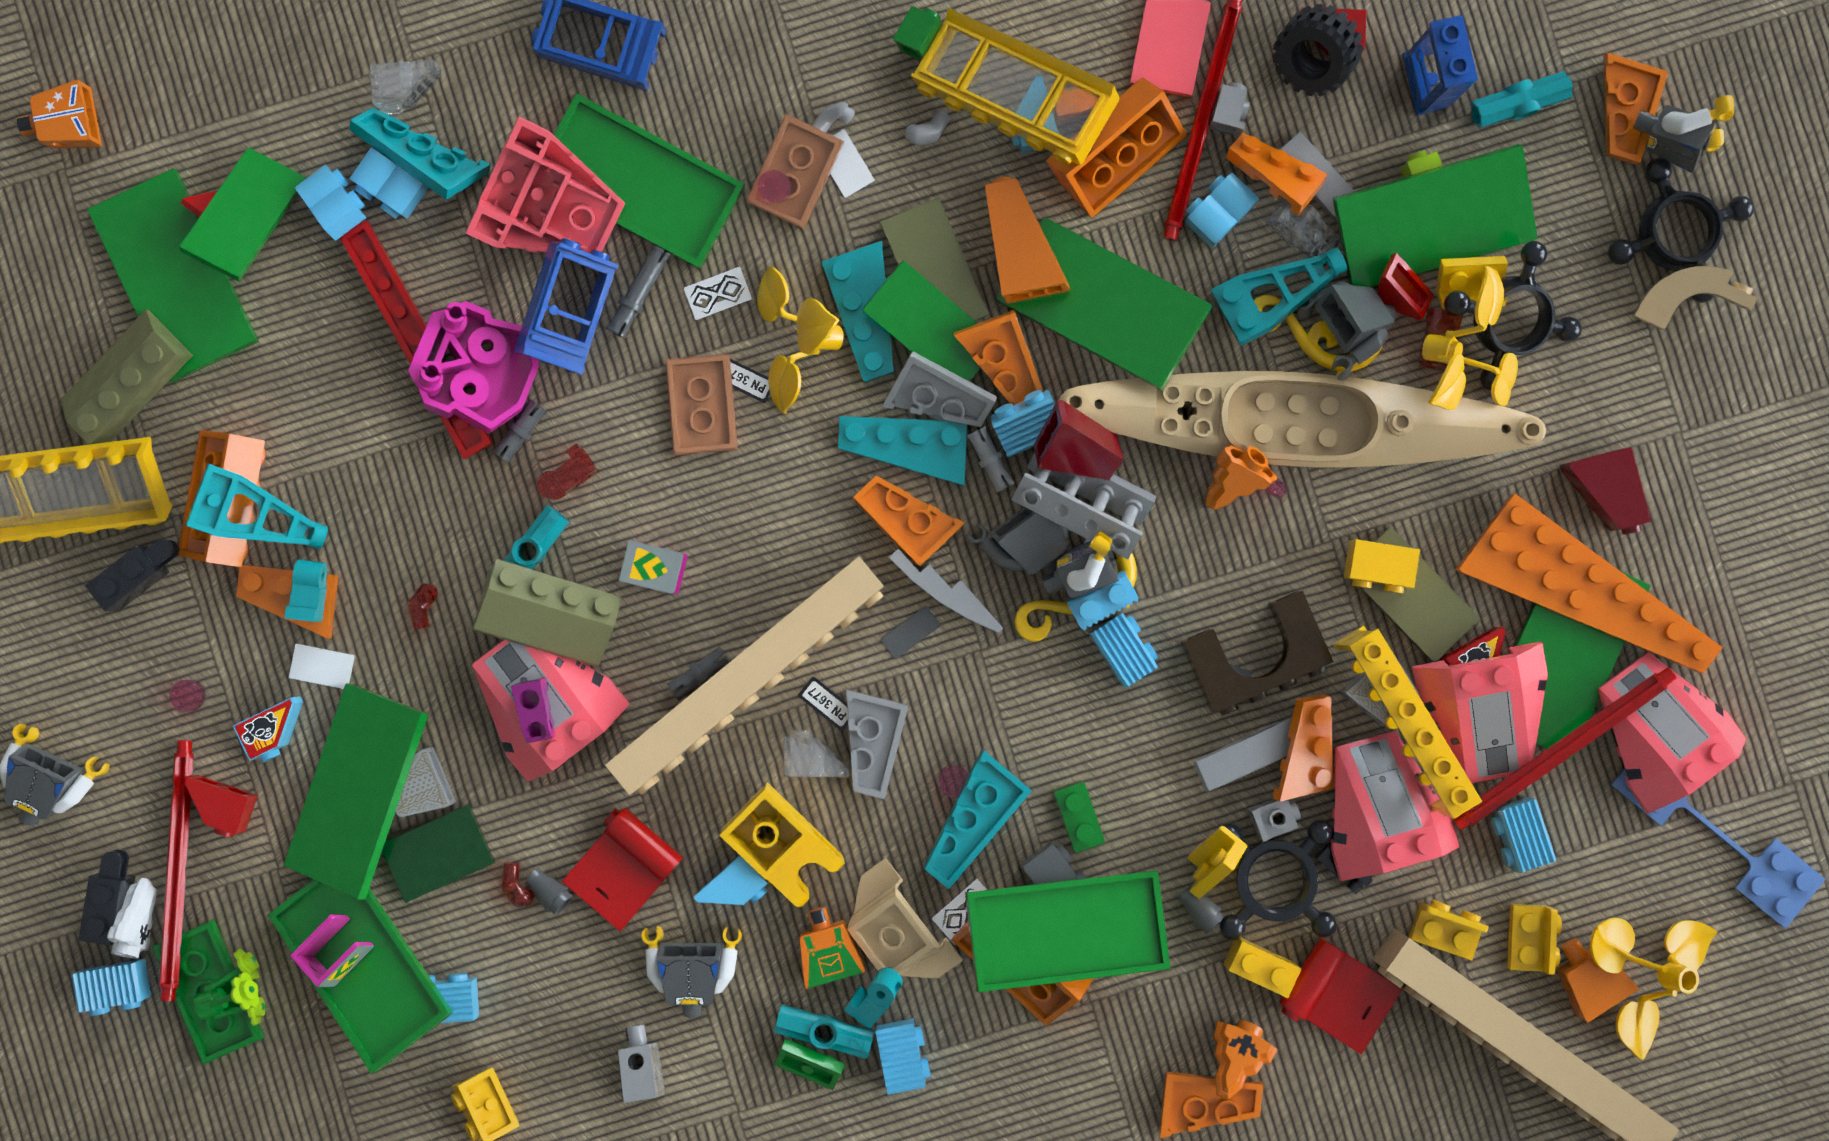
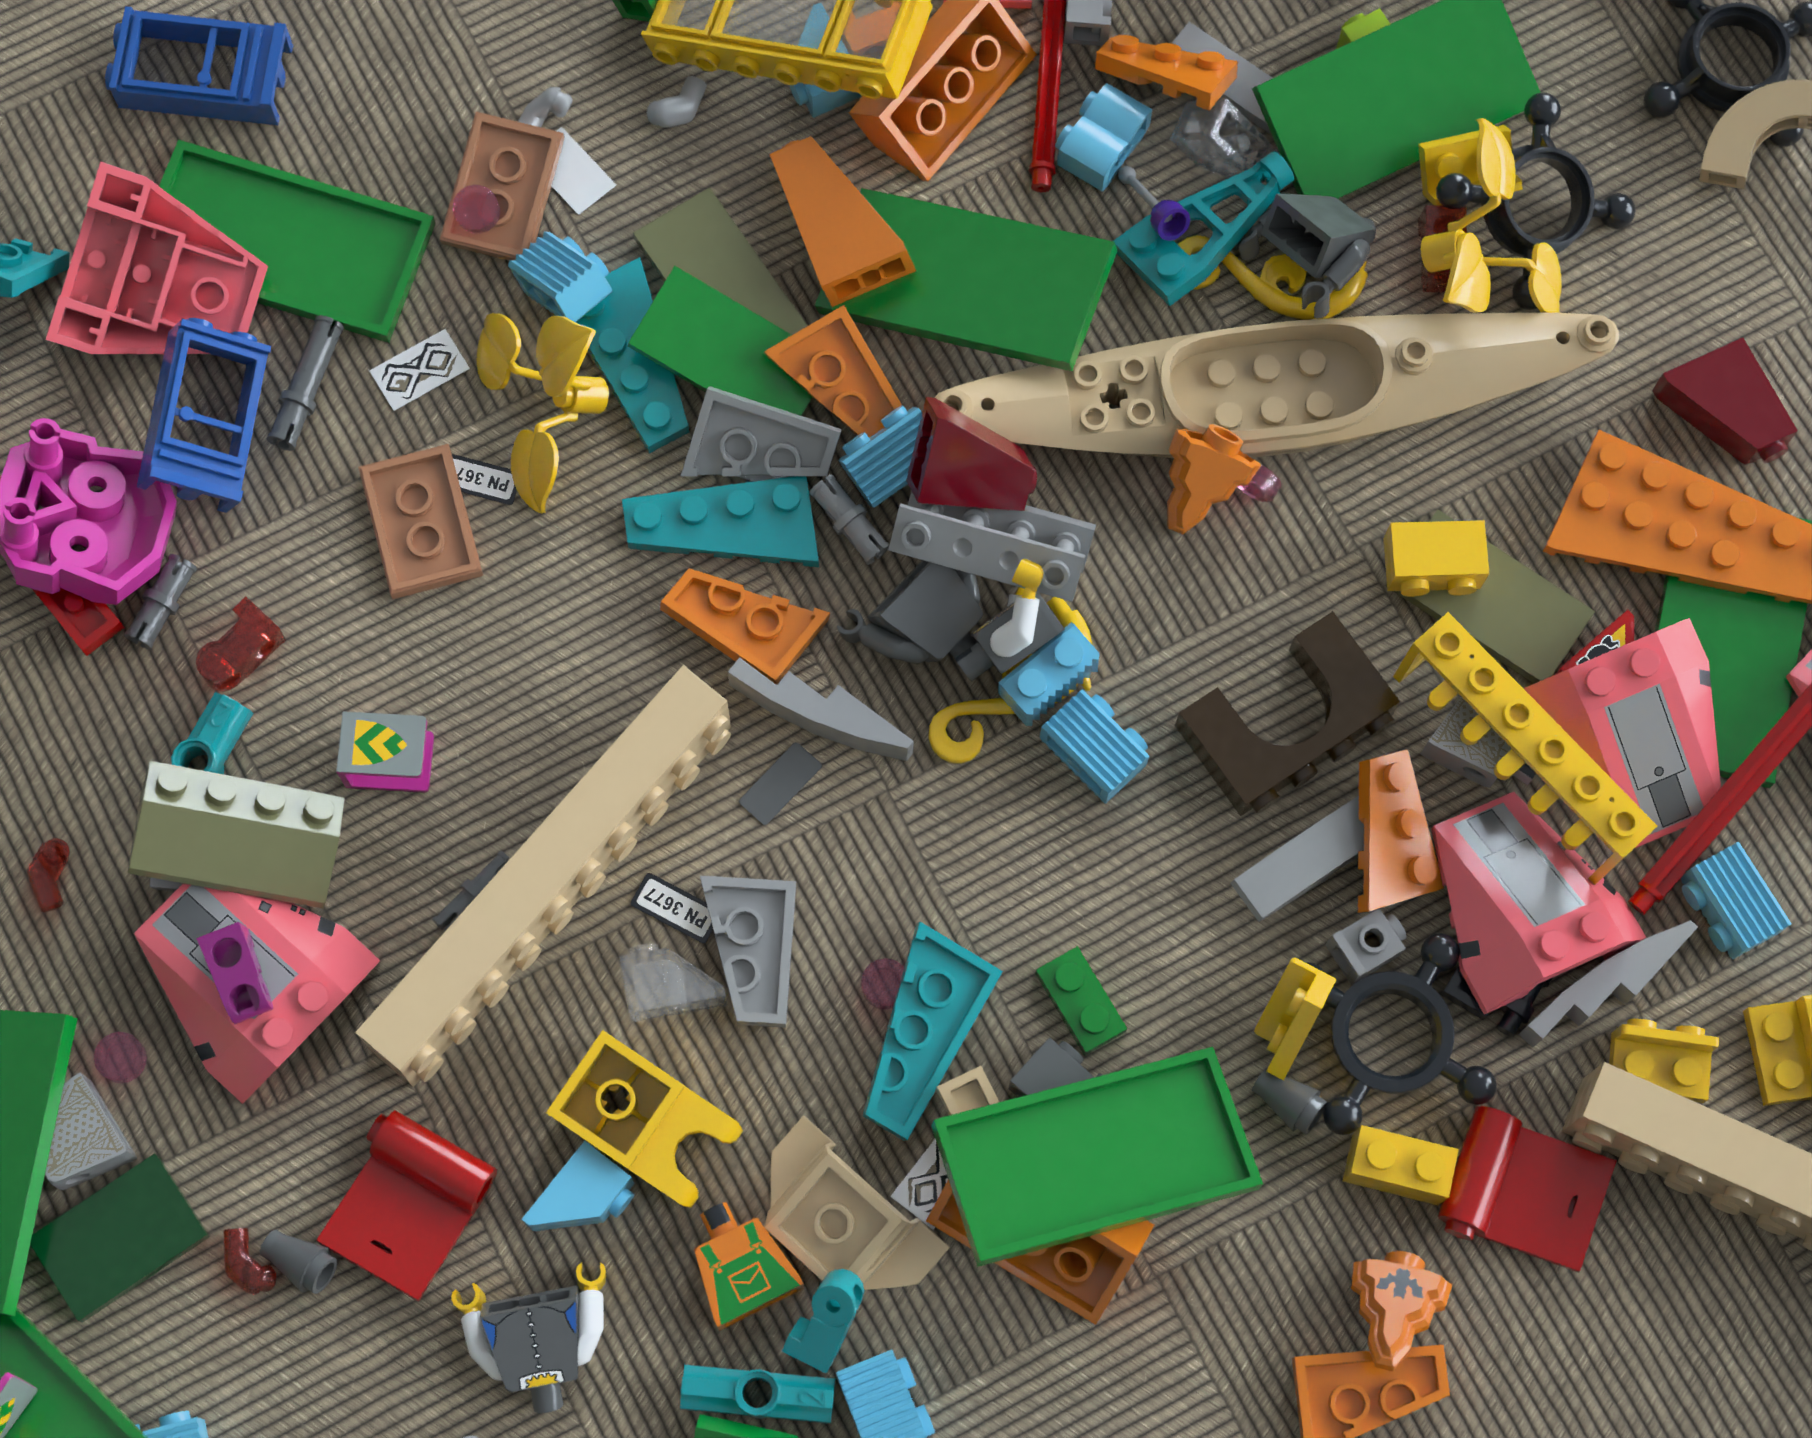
camera: 15 degrees left, 15 degrees down
(453, 736) = (120, 1057): none -> clear pink tile
(824, 250) = (561, 276): none -> medium azure brick
(993, 871) = (967, 1092): none -> tan tile
(1252, 284) = (1167, 216): none -> dark purple hinge
(1404, 289) = (1378, 193): red slope -> none
(1439, 871) = (1619, 975): none -> light grey slope

